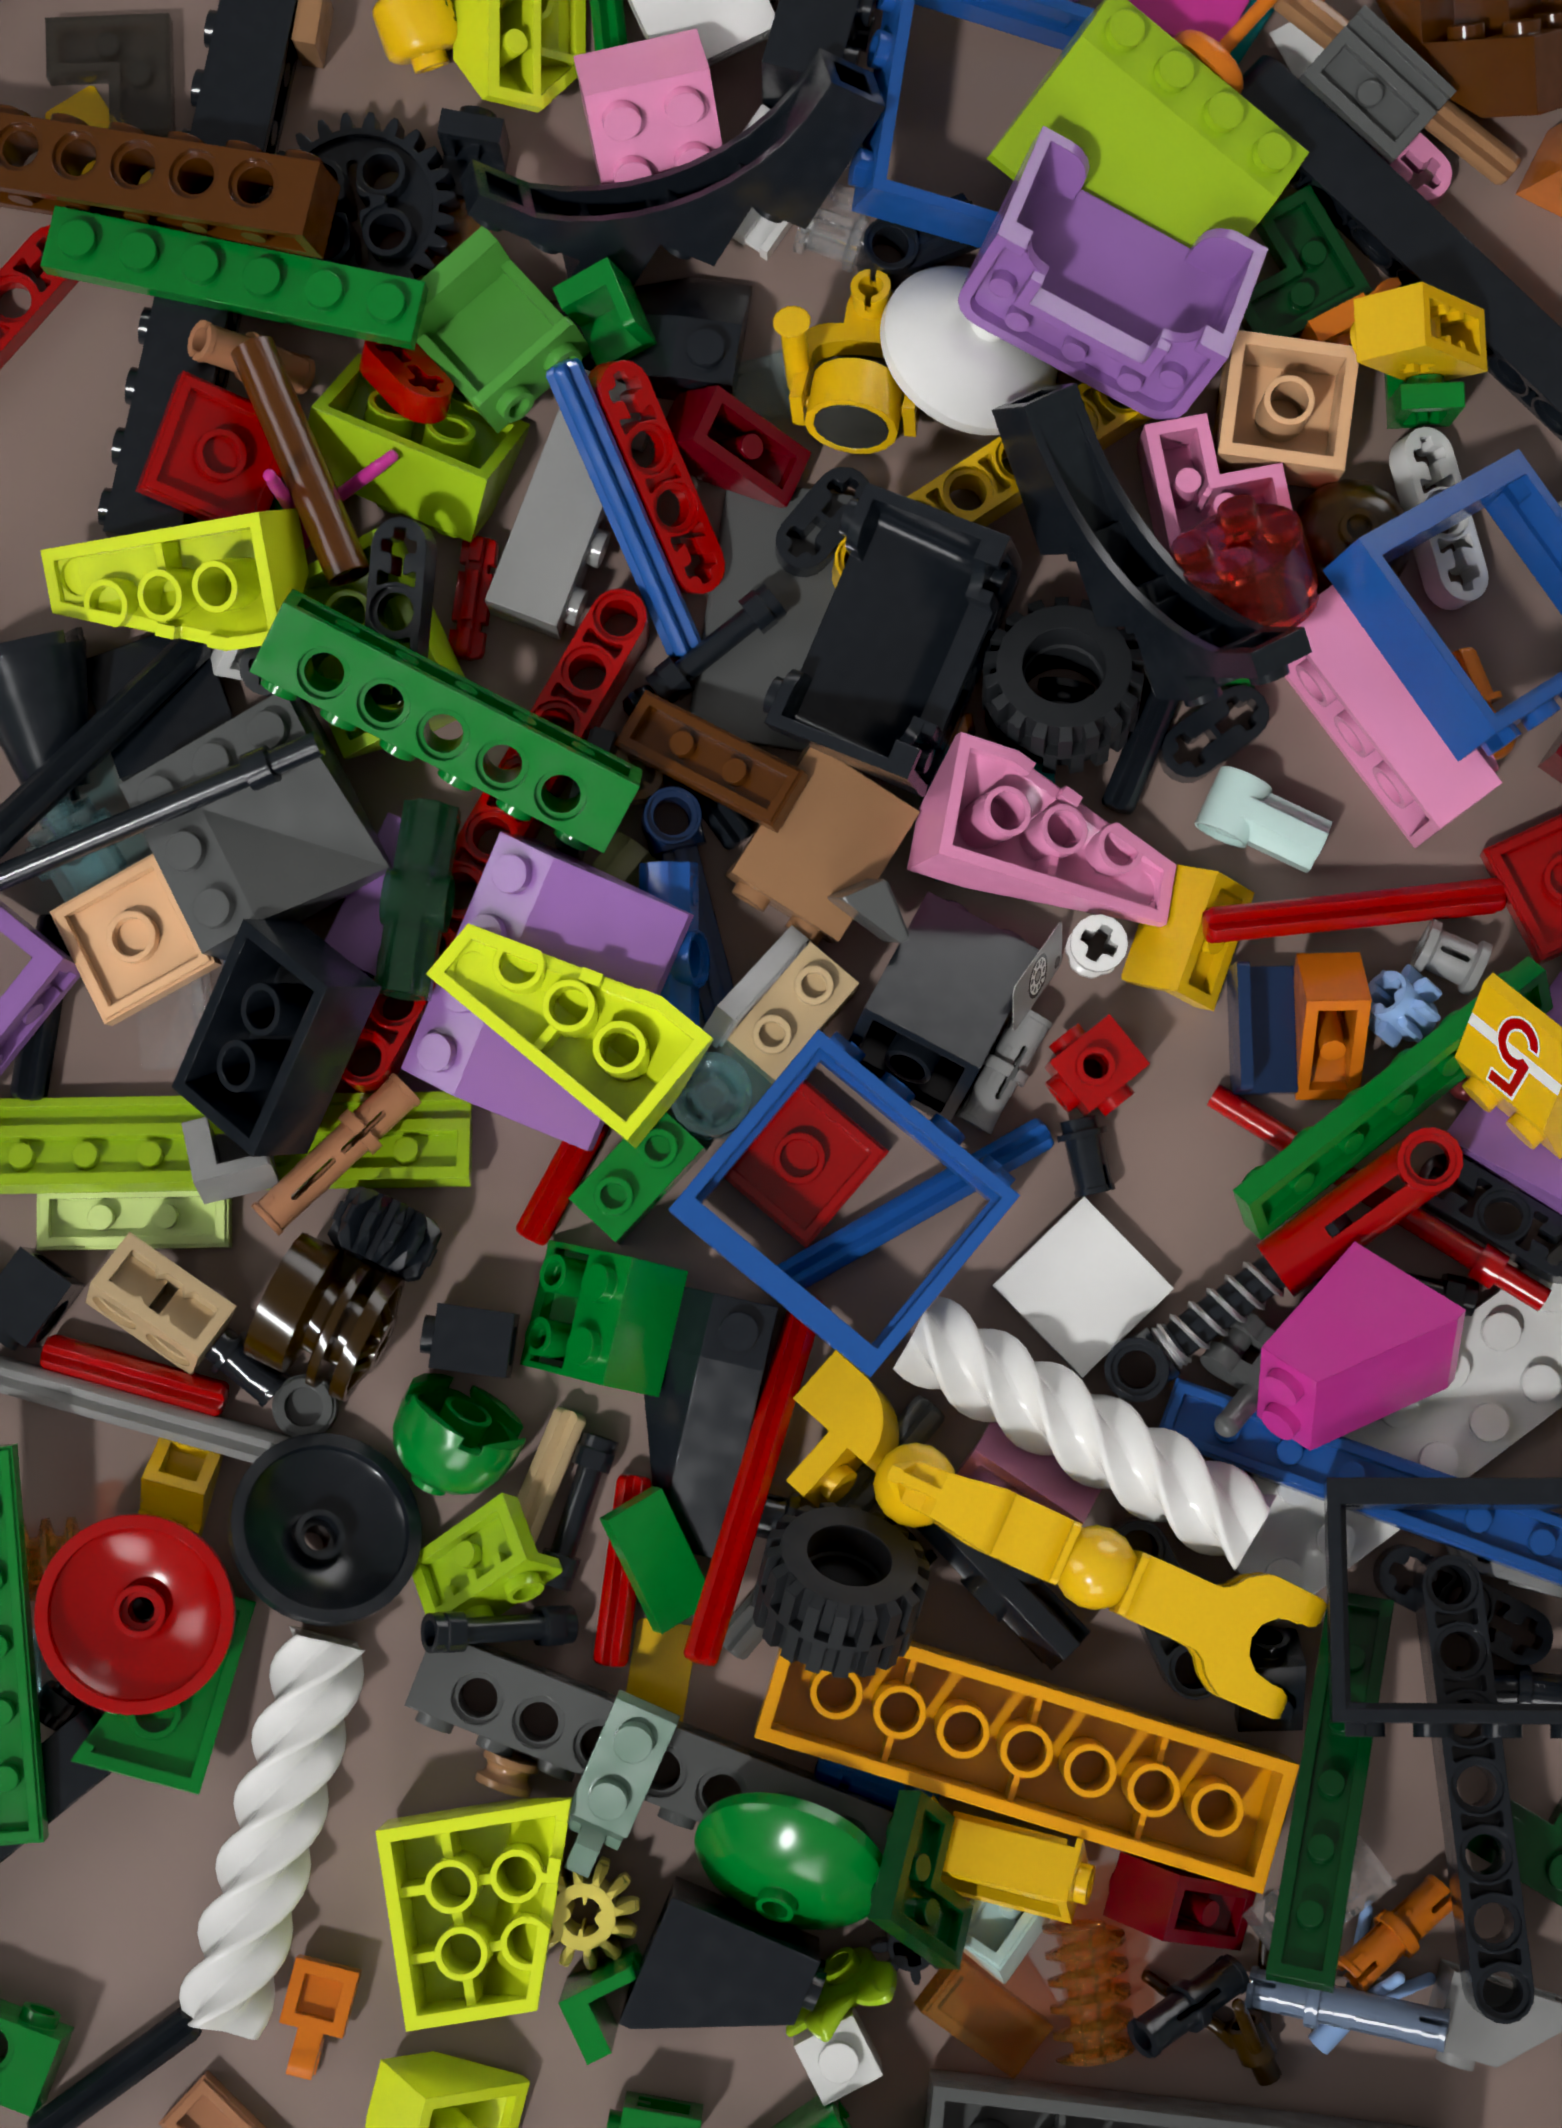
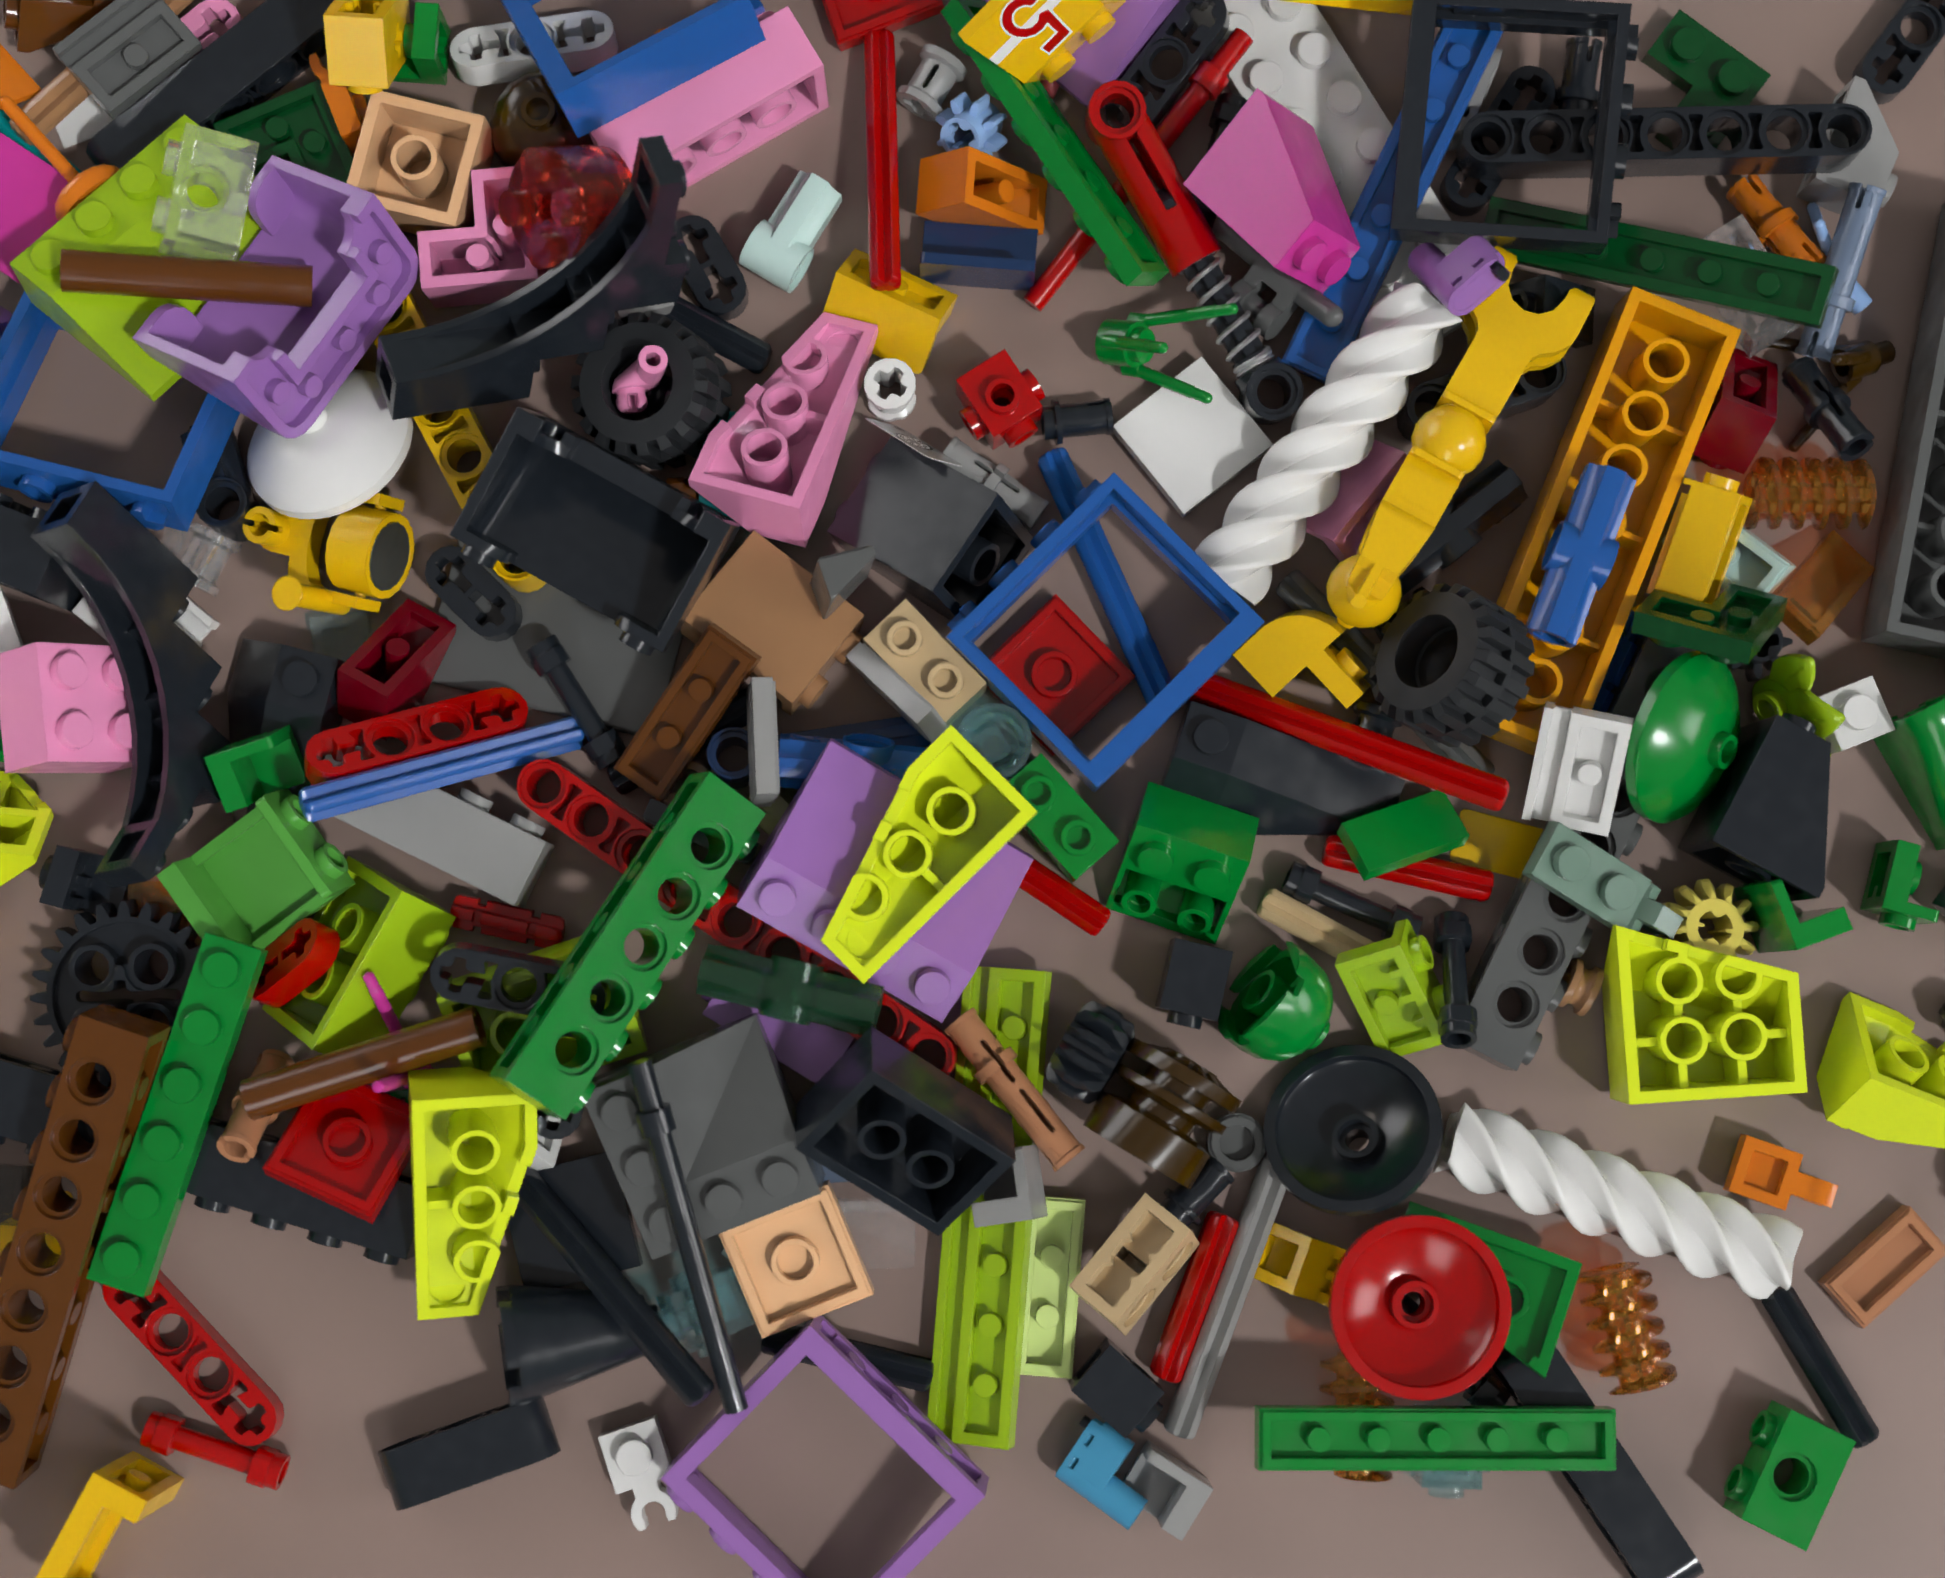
camera: 90 degrees left, 0 degrees up
(137, 1855) = (1628, 1328): none -> clear orange piece
(684, 843) = (762, 741): none -> light grey tile
(740, 1741) = (1577, 768): none -> white plate
(979, 1724) = (1580, 555): none -> blue piece
(1068, 664) = (639, 378): none -> bright pink arm
(1118, 174) = (185, 278): none -> reddish brown piece
(1175, 1209) = (1132, 344): none -> green plant
(1247, 202) = (224, 166): none -> clear brick
(1280, 1563) = (1463, 276): none -> medium lavender piece

